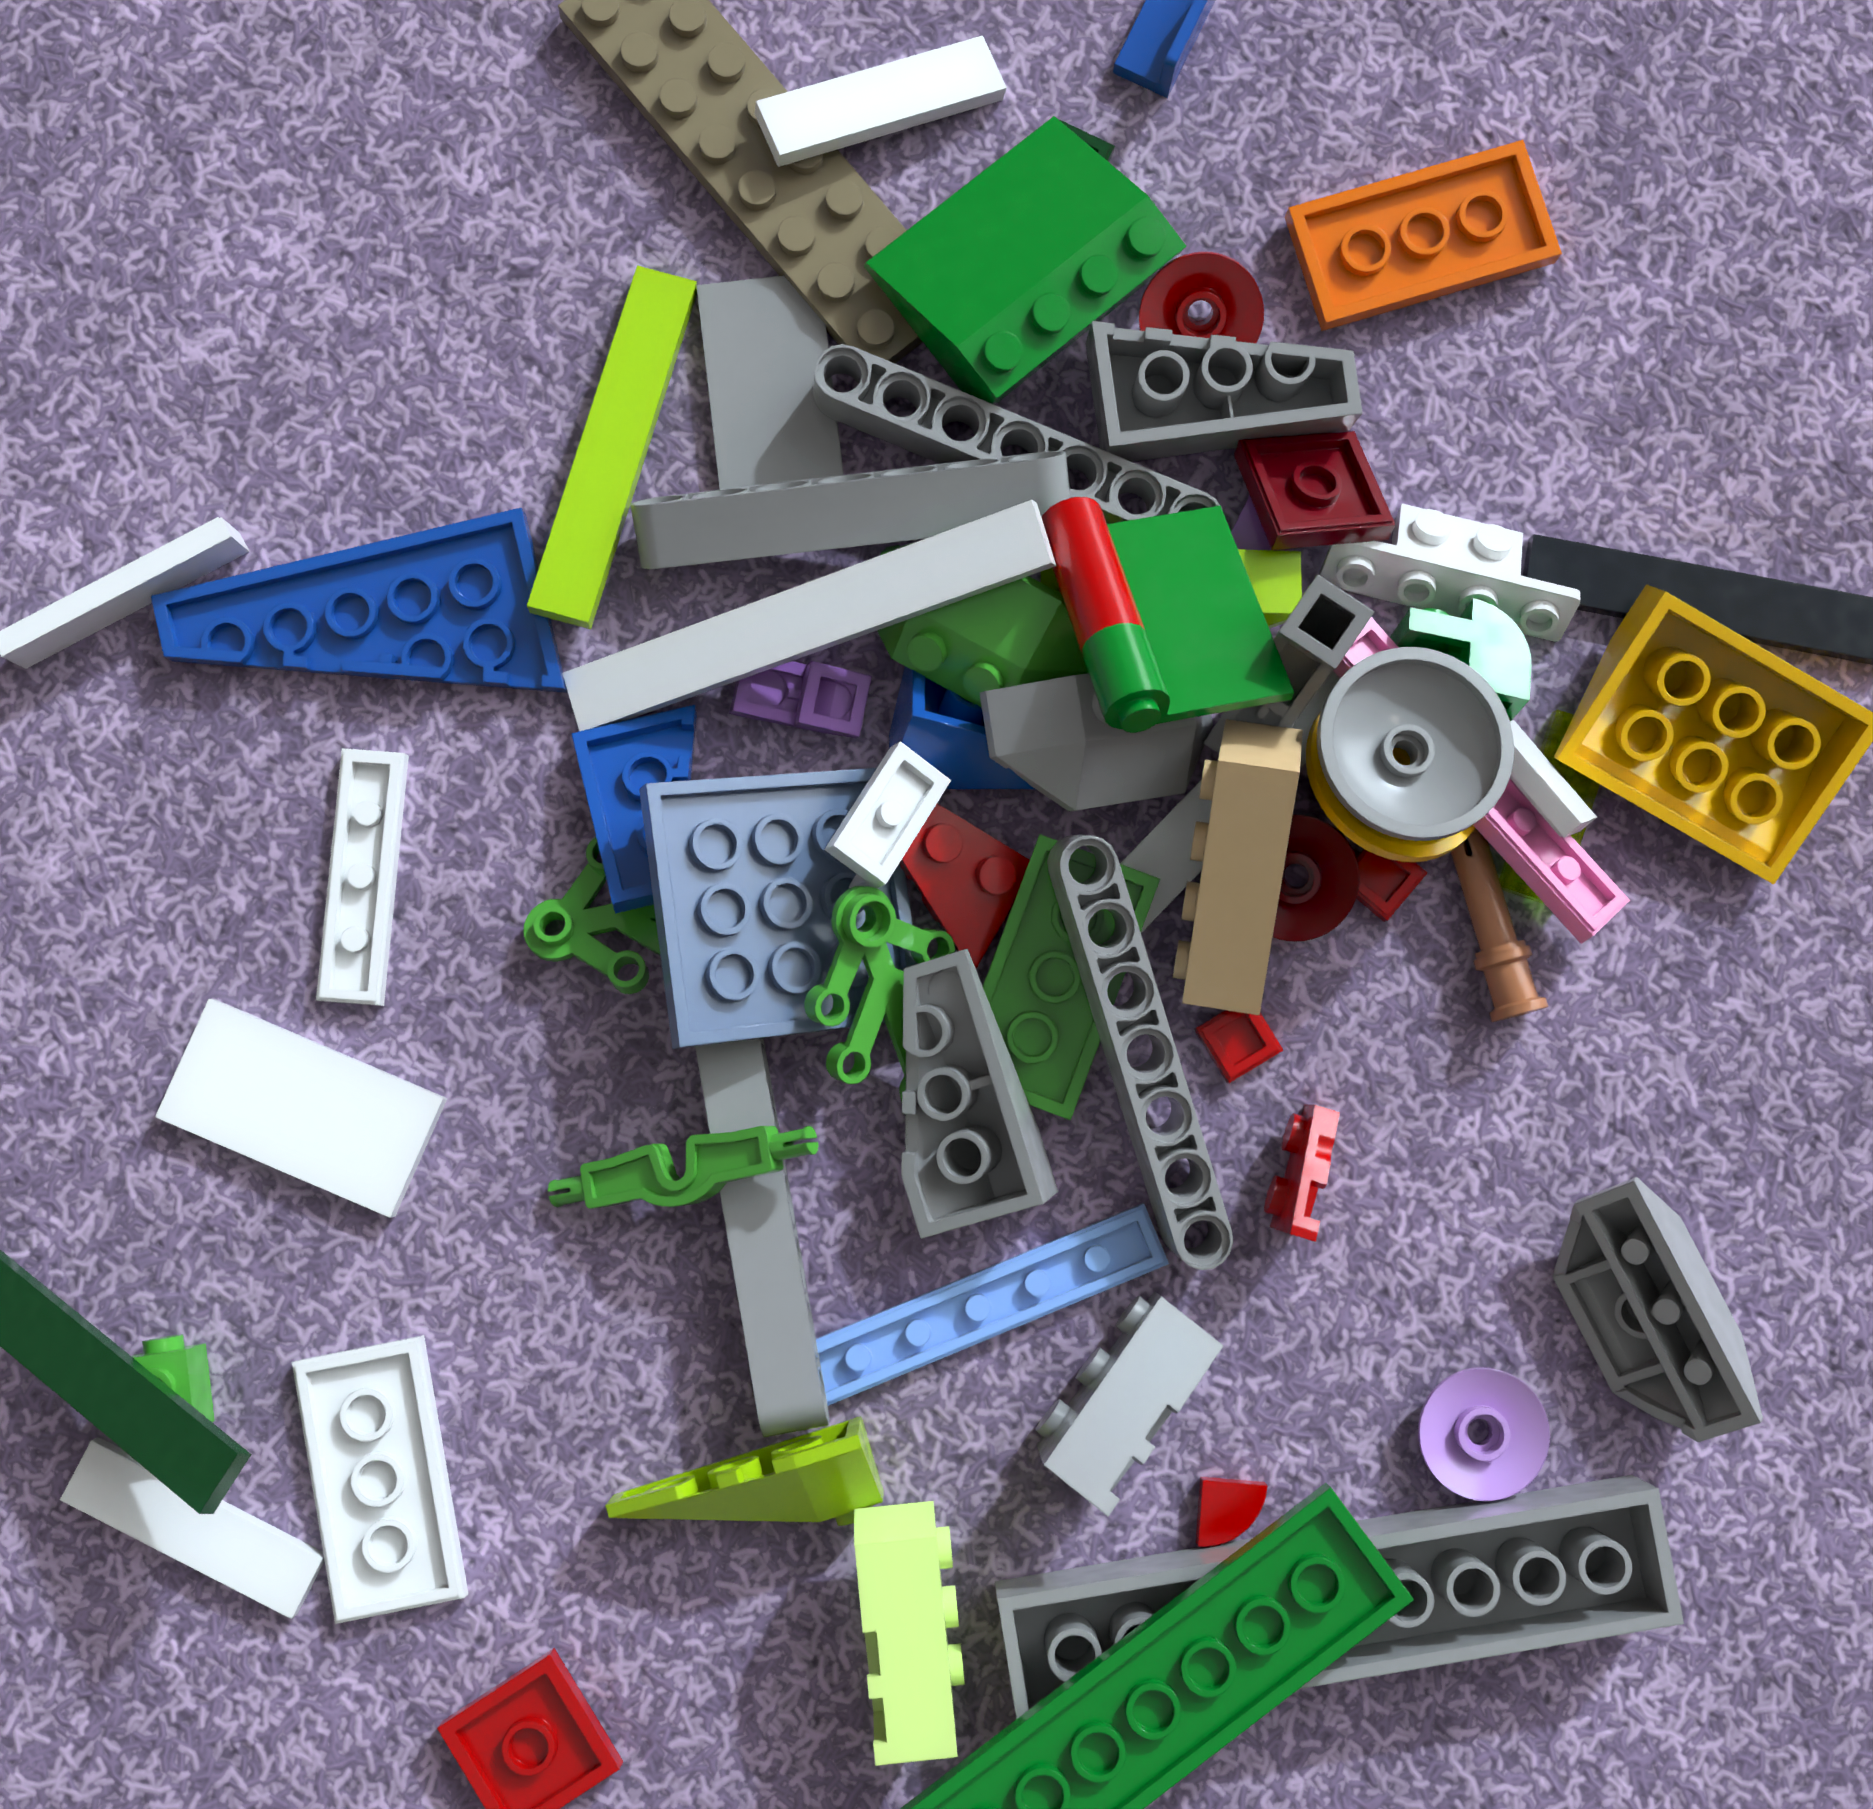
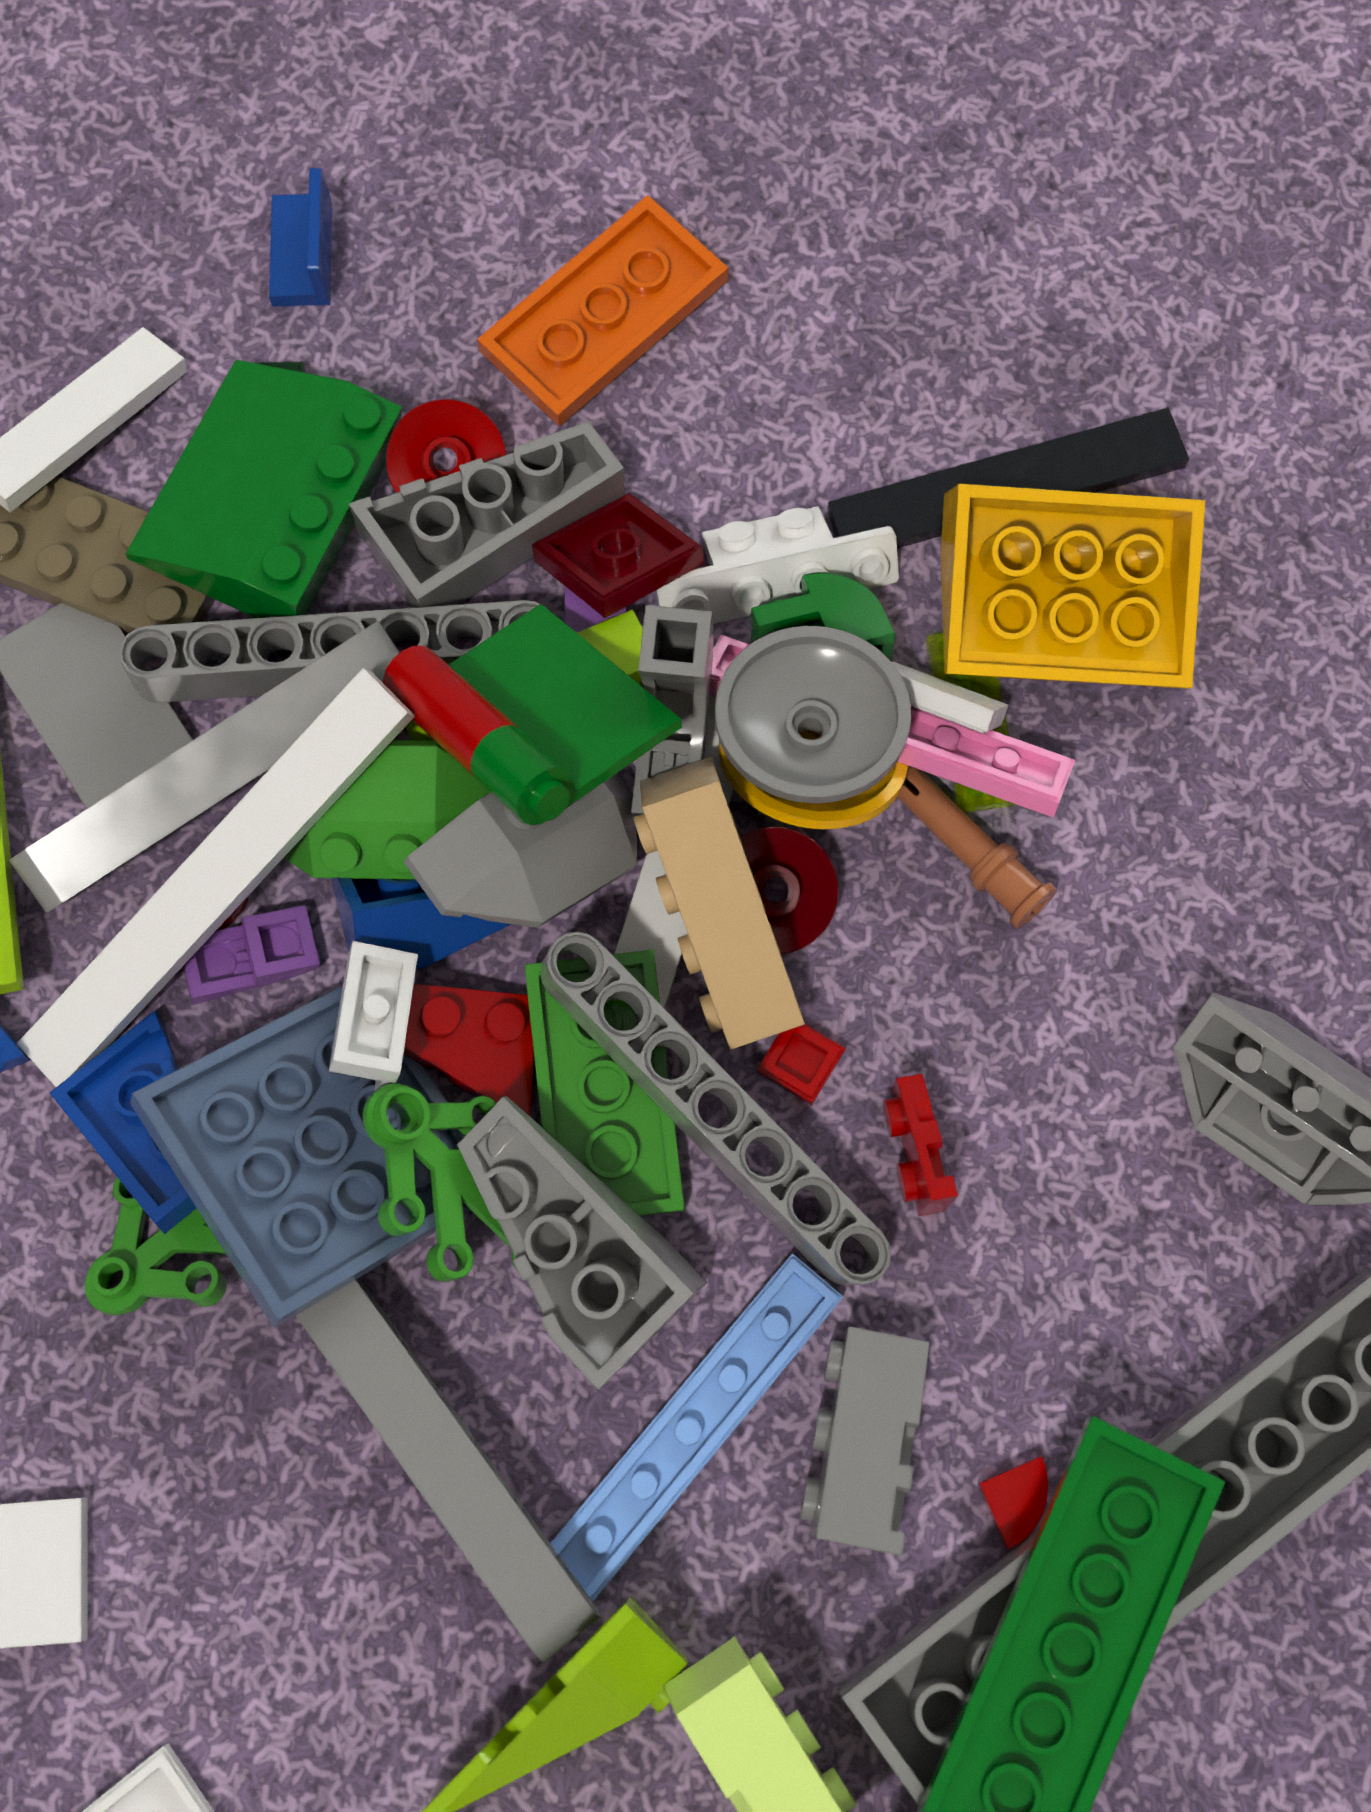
camera: 20 degrees left, 10 degrees down
(710, 1164) = (363, 1420): bright green piece -> none
(1386, 883) = (857, 854): red tile -> none
(1515, 1440) = (1243, 1295): lavender dish -> none

